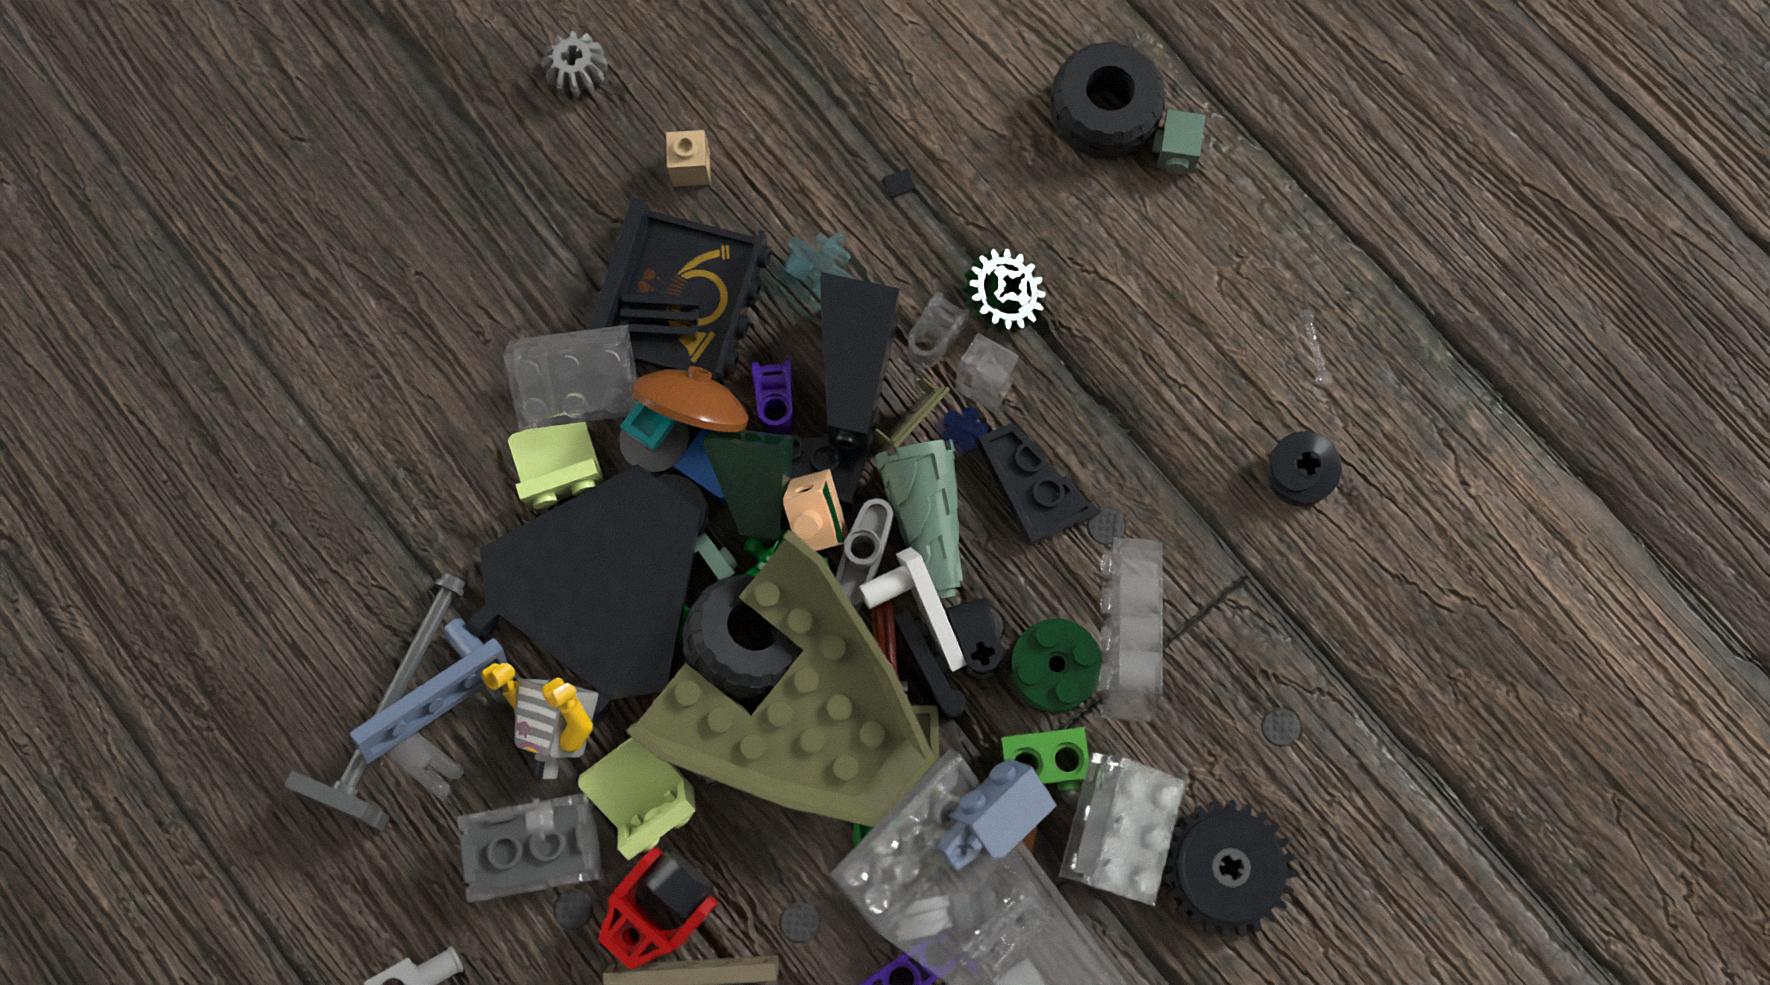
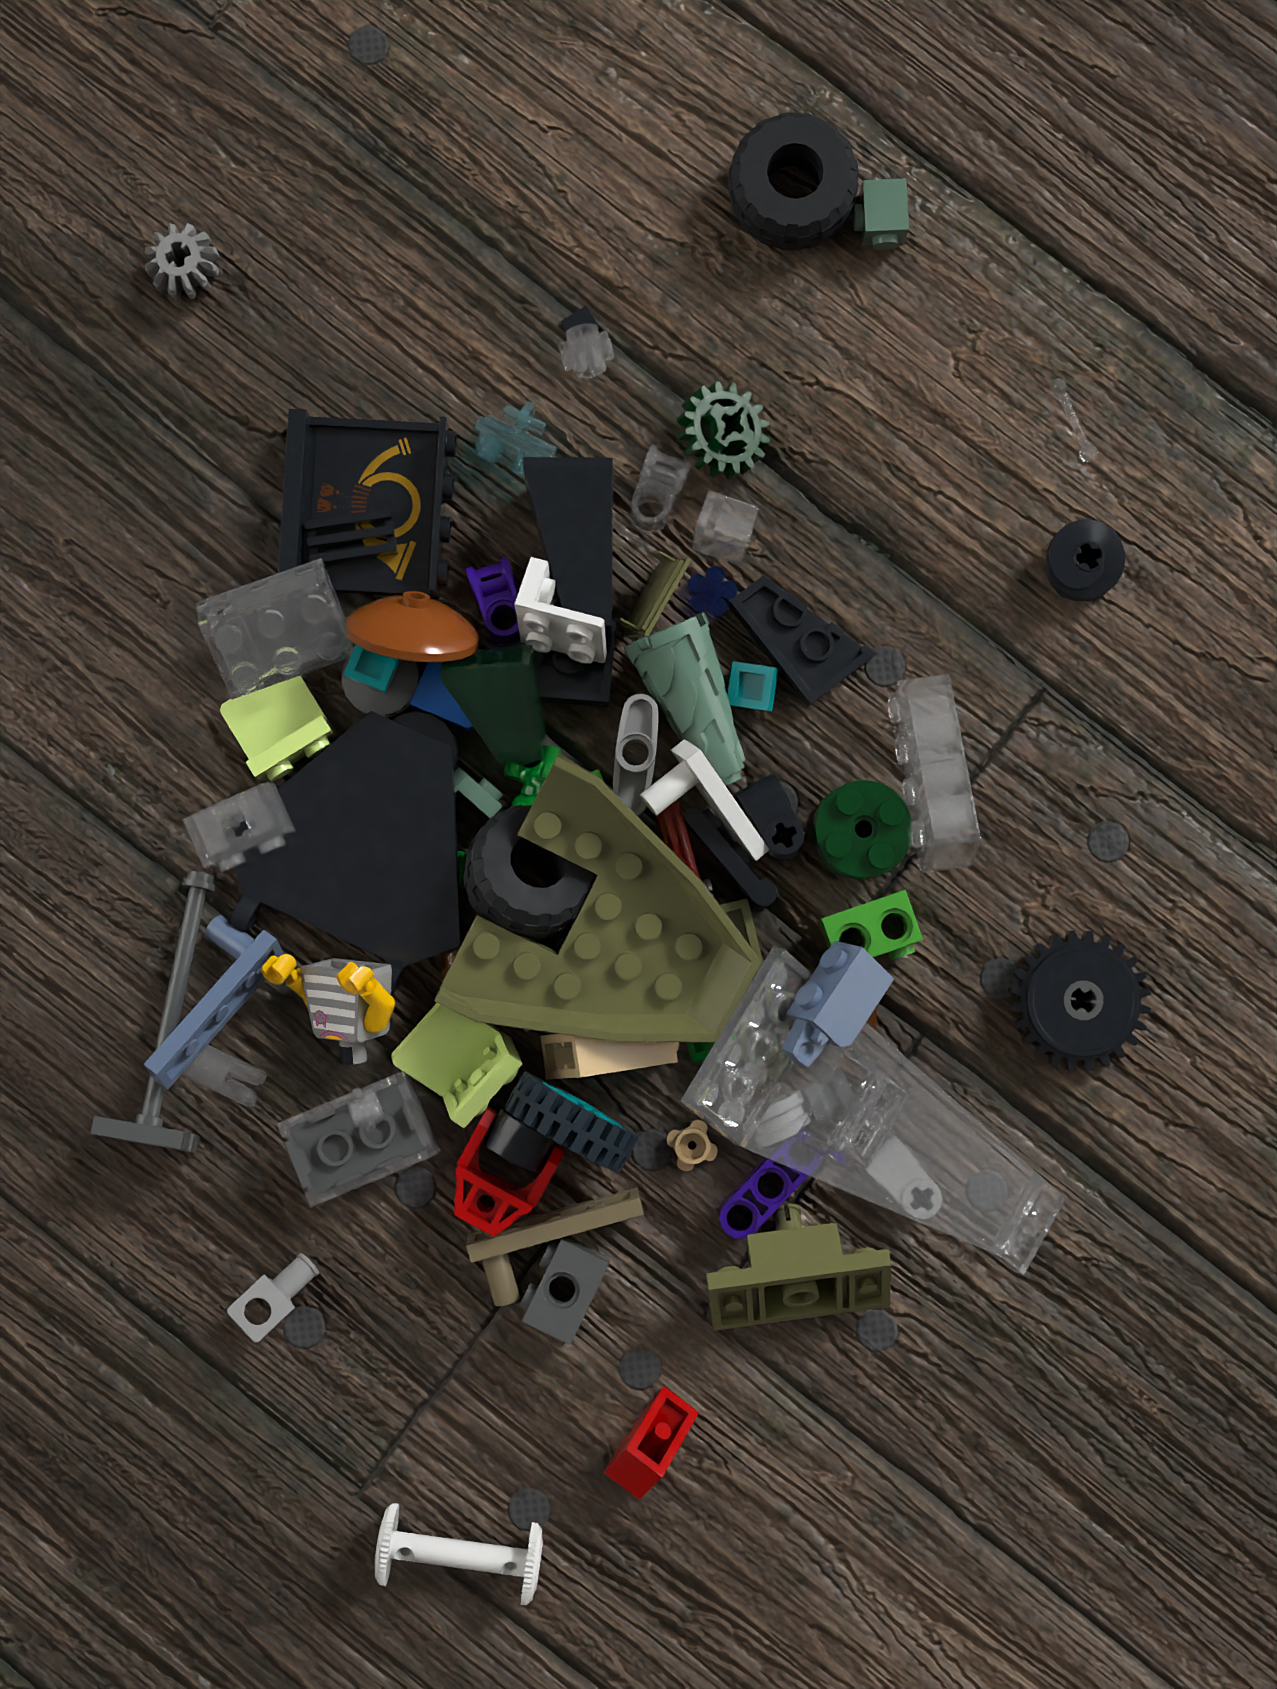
camera: 15 degrees left, 10 degrees up
(472, 539) = (214, 827): none -> clear brick
(688, 158) = (338, 347): tan brick -> none
(728, 876) = (571, 1122): none -> black wheel
(756, 817) = (582, 1056): none -> tan slope
(814, 422) = (555, 627): none -> white bracket
(815, 513) = (577, 726): light nougat torso -> none
(832, 937) = (704, 1148): none -> tan plate
(899, 202) = (586, 350): none -> clear gear
(983, 516) = (752, 686): none -> teal plate
(1122, 828) = (965, 985): clear piece -> none

